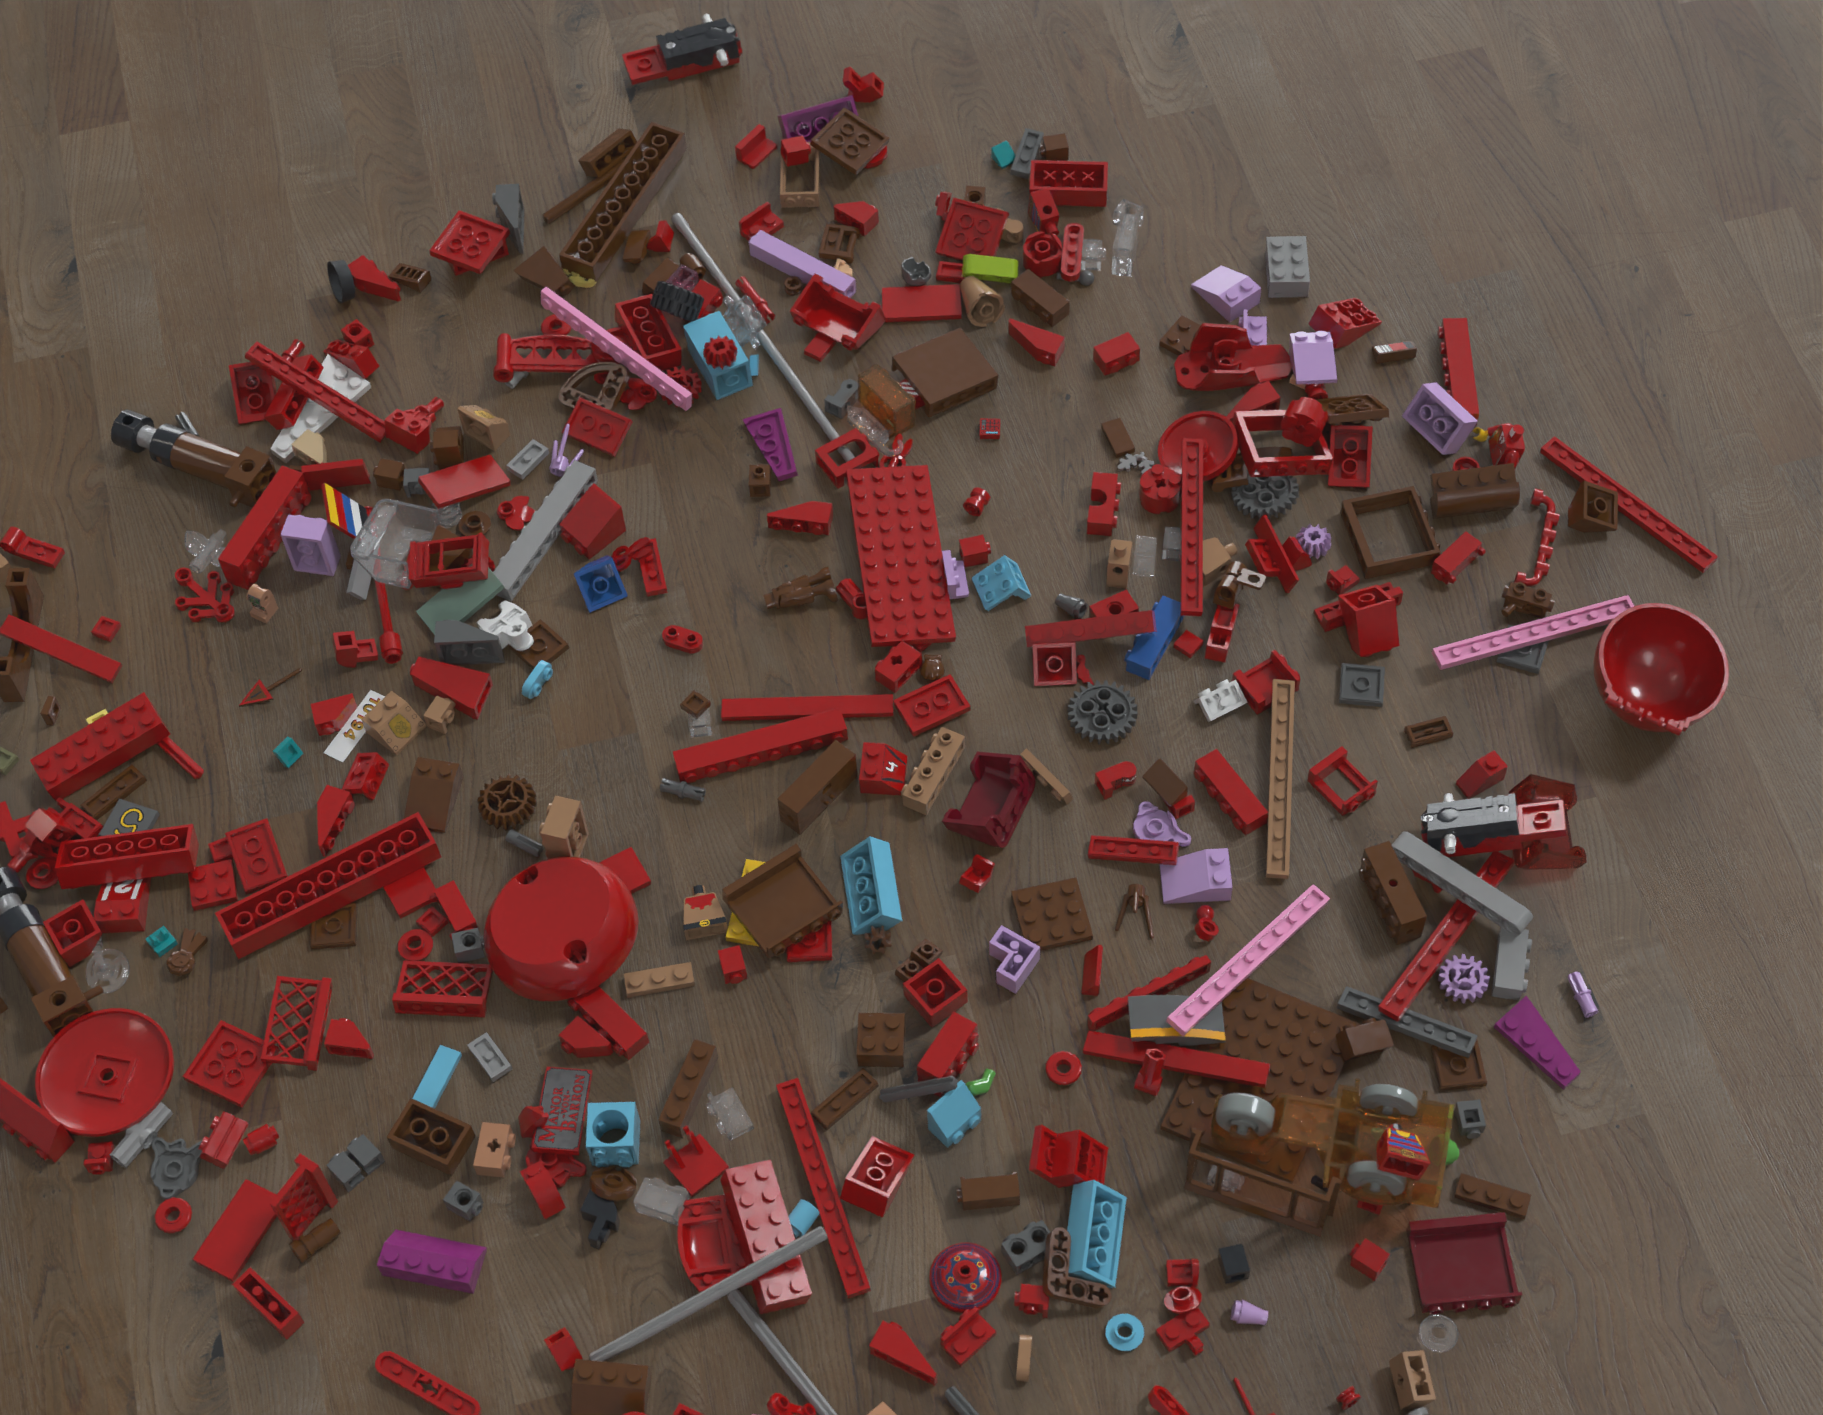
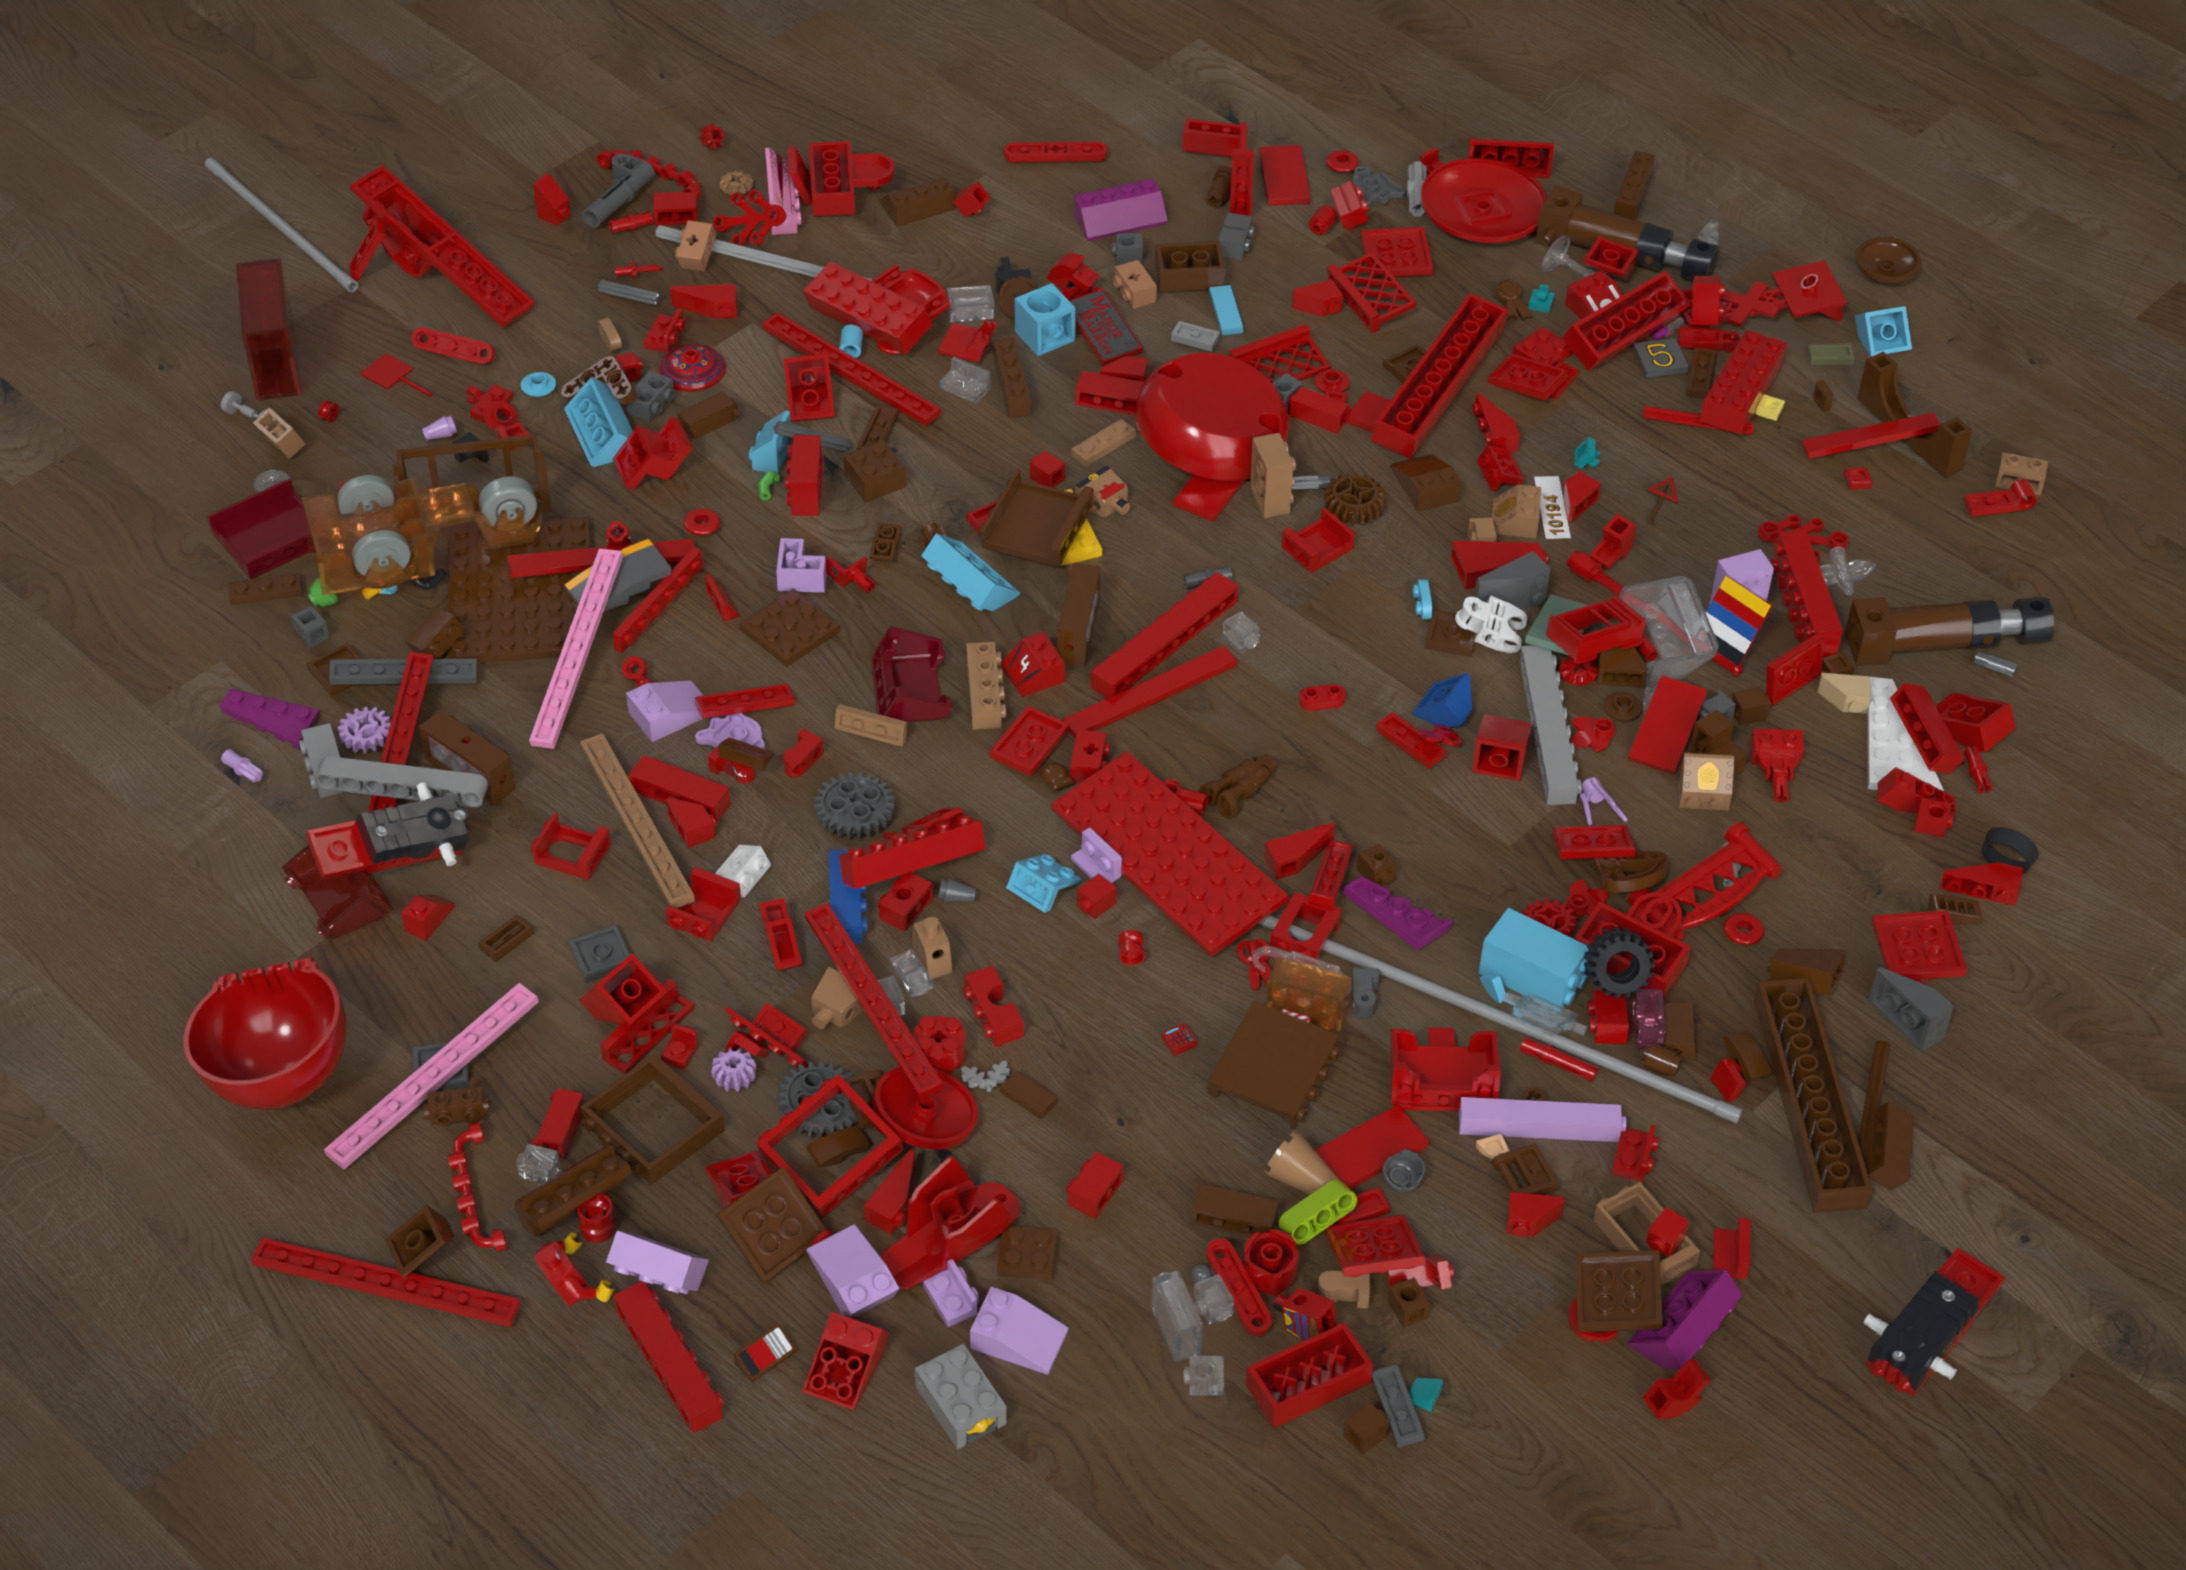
camera: 145 degrees right, 10 degrees down
(262, 602) = (1738, 539): nougat leg -> none
(317, 391) = (1898, 724): red tile -> none
(527, 459) = (1632, 783): light grey plate -> none
(530, 1118) = (1119, 307): red slope -> none
(569, 778) = (1319, 541): none -> red panel
(616, 348) = (1642, 897): bright pink plate -> none
(695, 704) = (1250, 625): reddish brown tile -> none
(709, 1295) = (878, 250): light grey axle -> none
(720, 352) = (1516, 921): red gear -> none
(798, 483) = (1331, 873): none -> red tile
(935, 992) = (850, 516): red brick -> none
(967, 936) = (854, 573): none -> red bracket
(977, 874) = (879, 620): red bracket -> none
(1041, 344) = (1196, 1156): red slope -> none
(1135, 898) = (718, 668): reddish brown plant -> none
(1188, 644) = (804, 906): red tile -> none
(1233, 582) = (791, 969): reddish brown piece -> none
(1238, 754) = (691, 821): none -> red slope
(1304, 421) = (809, 1147): red brick -> none
(1401, 1153) = (349, 496): red torso -> none
(1488, 533) = (538, 1163): none -> clear brick

